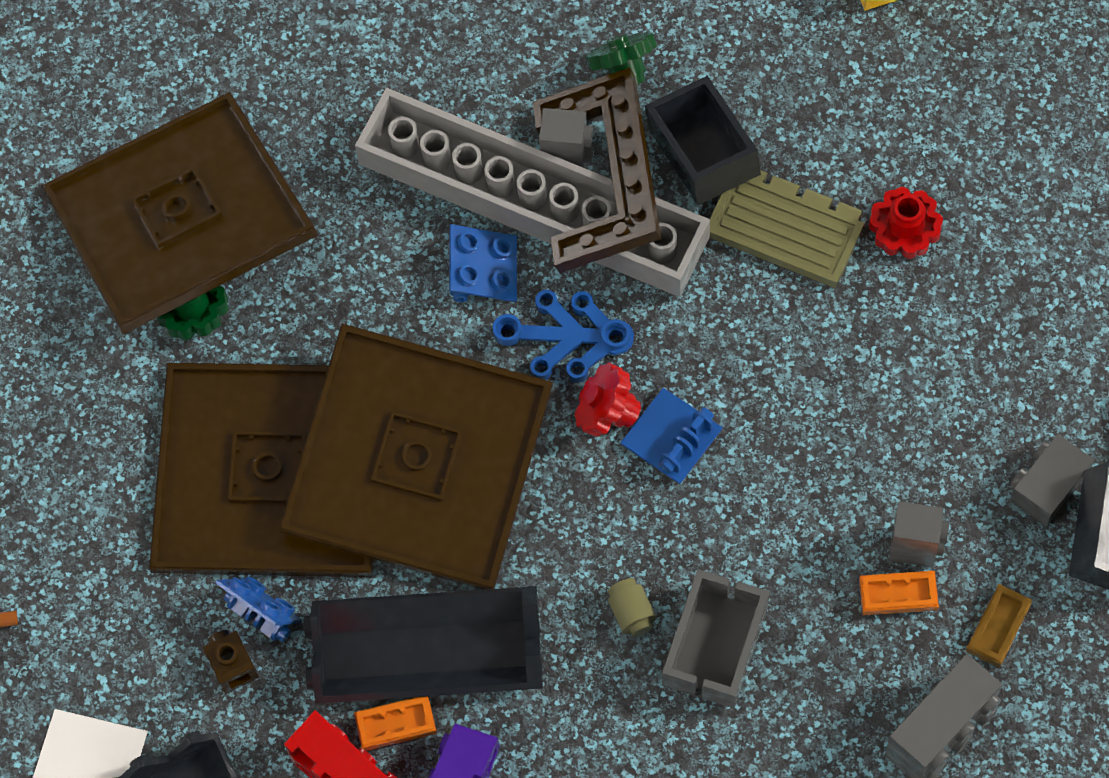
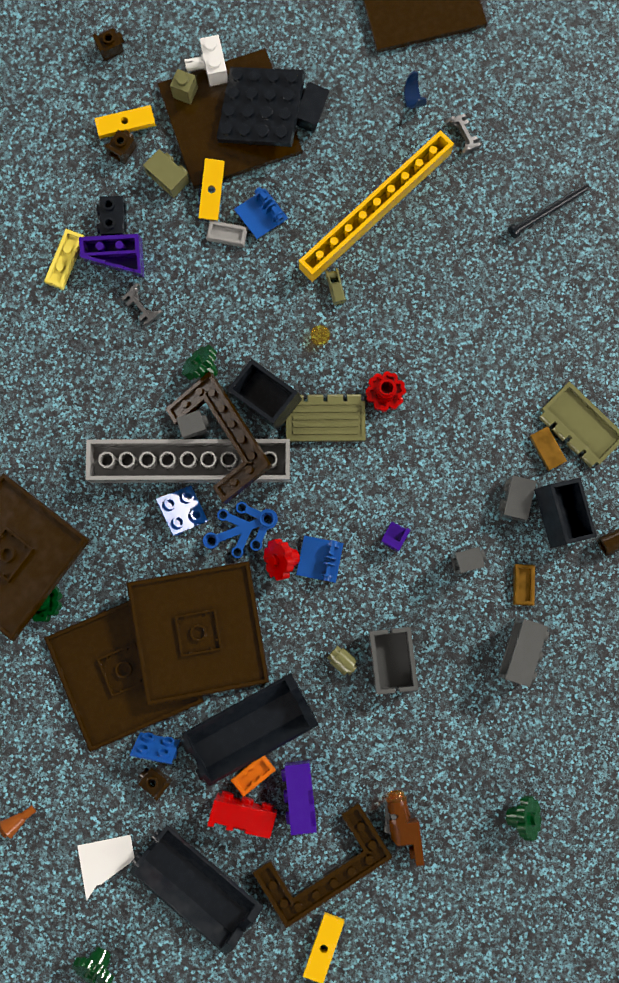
camera: 30 degrees left, 15 degrees up
(813, 454) = (395, 536): none -> dark purple panel
(838, 95) = (320, 335): none -> clear yellow tile
(898, 593) = (469, 591): orange plate -> none
(899, 34) = (336, 288): none -> olive bar

